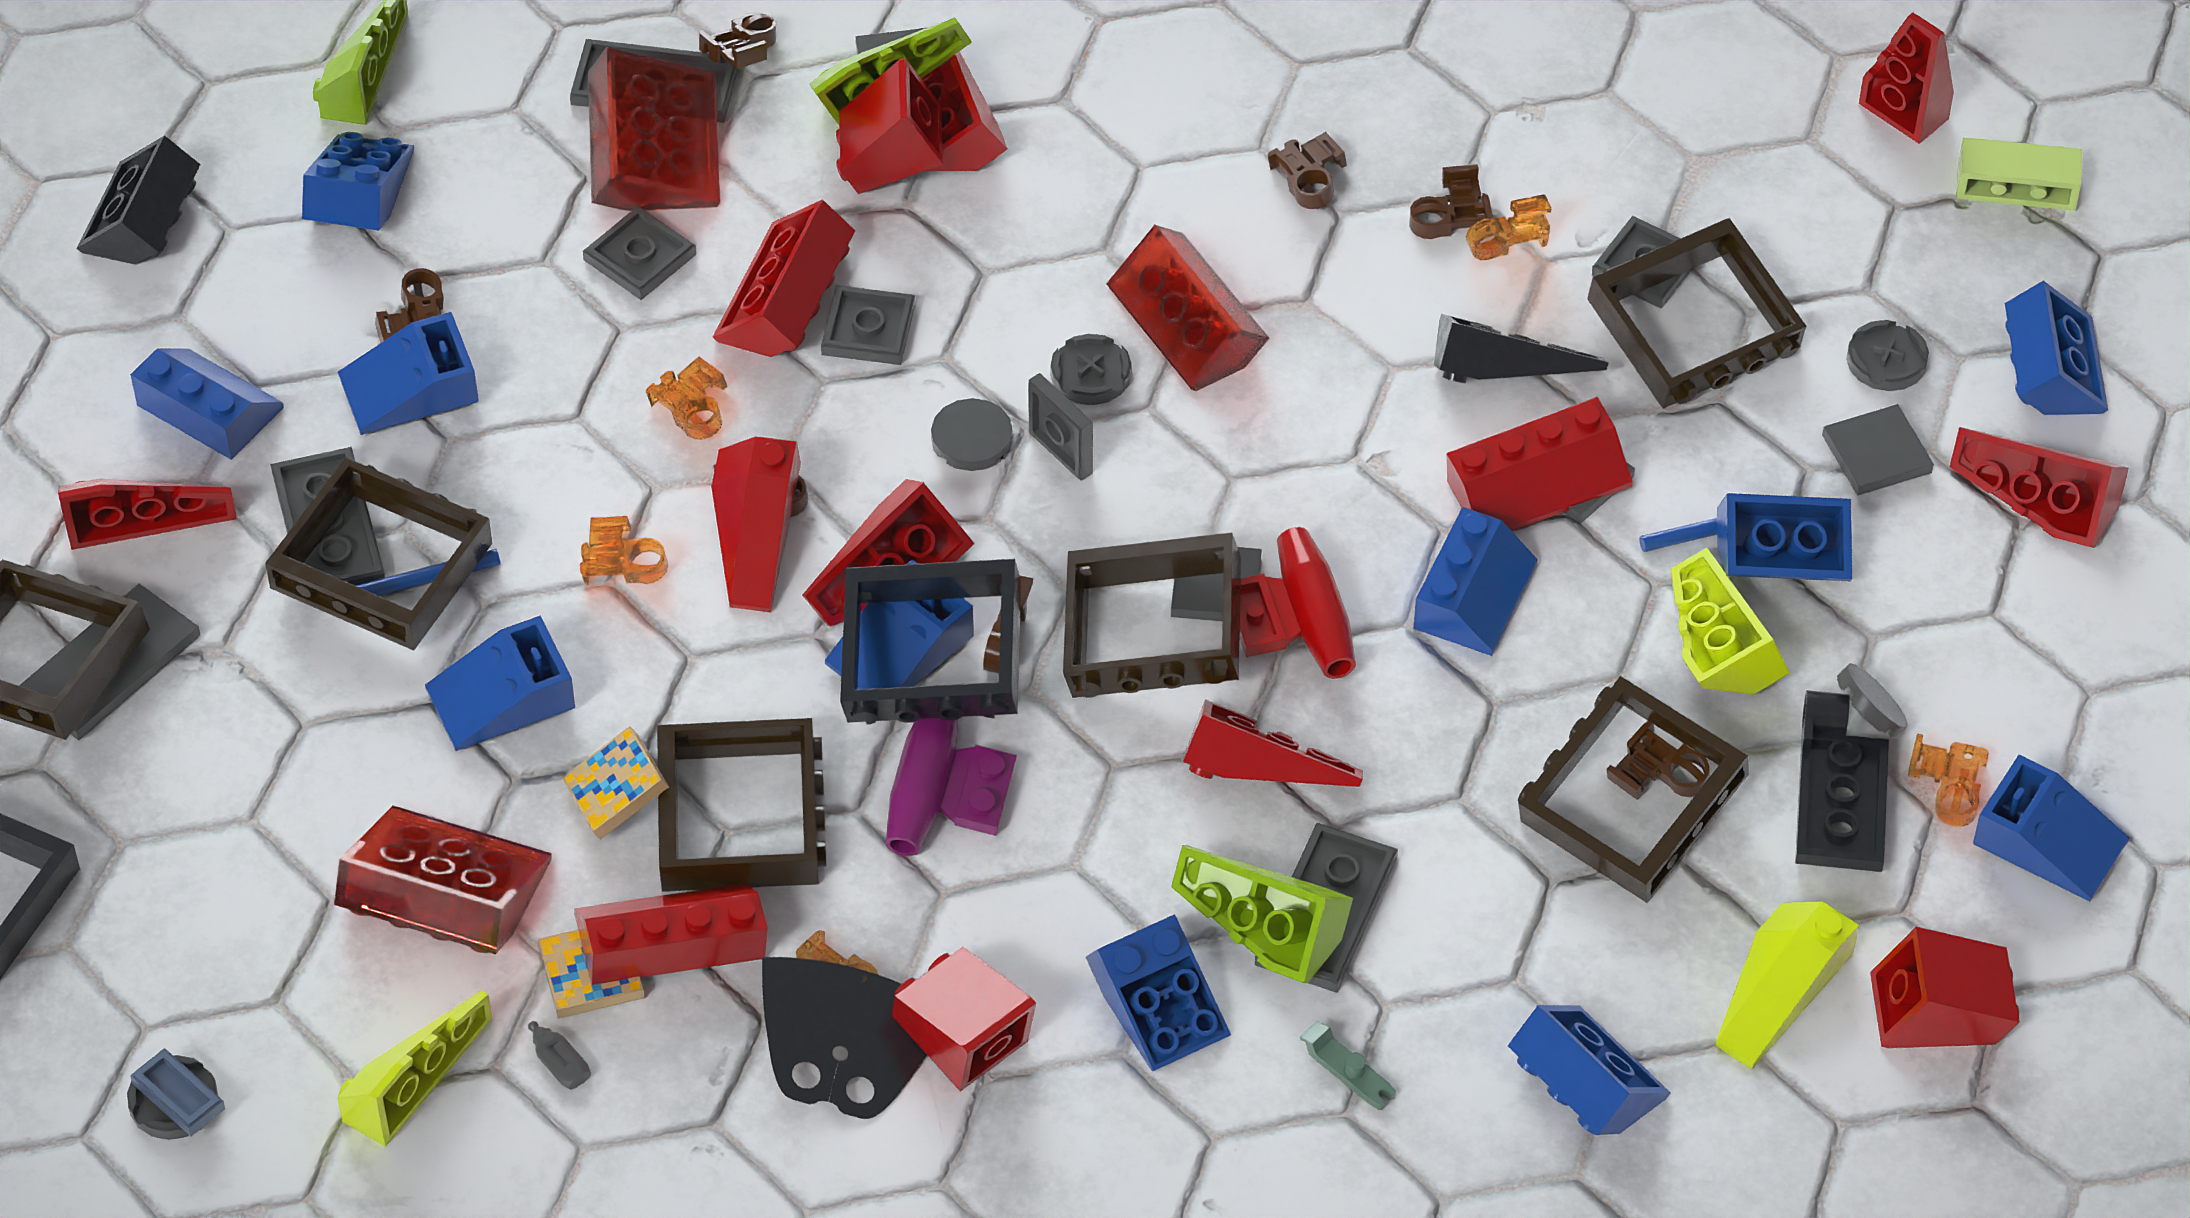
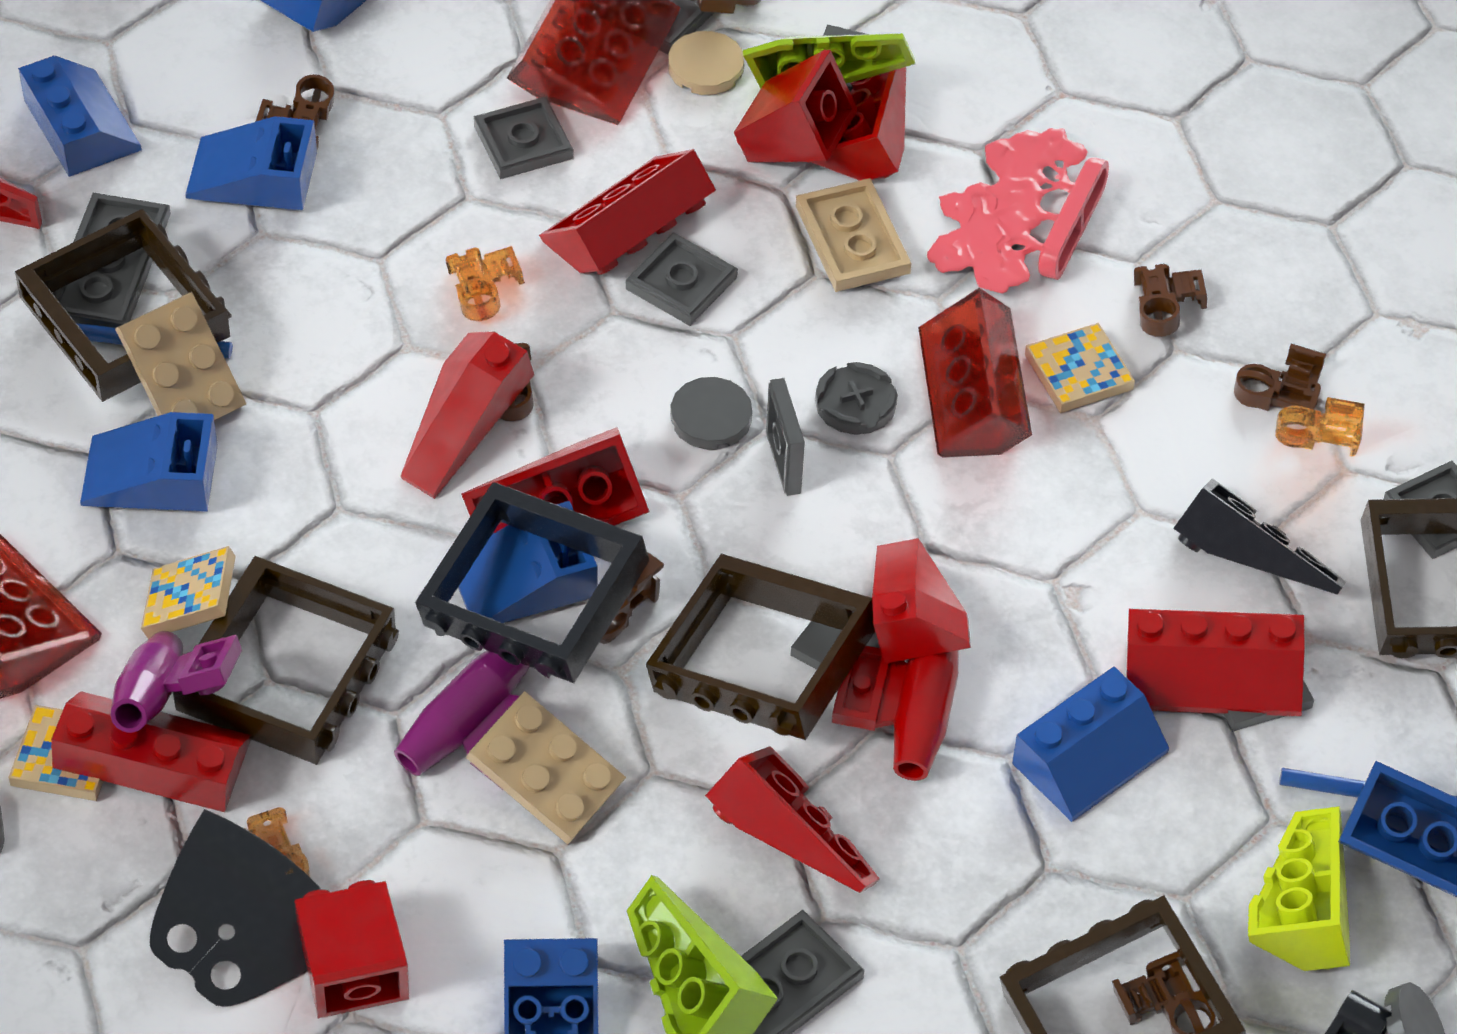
camera: 25 degrees right, 0 degrees up
(474, 581) = (180, 360): none -> tan plate
(615, 555) = (329, 380): clear orange piece -> none
(646, 864) = (161, 668): none -> magenta plate
(764, 115) = (706, 62): none -> tan tile
(999, 222) = (853, 235): none -> tan plate
(1029, 797) = (545, 767): none -> tan plate
(1122, 147) = (1006, 212): none -> coral plant
(1267, 529) = (914, 605): none -> red wedge
(1269, 262) = (1079, 367): none -> tile

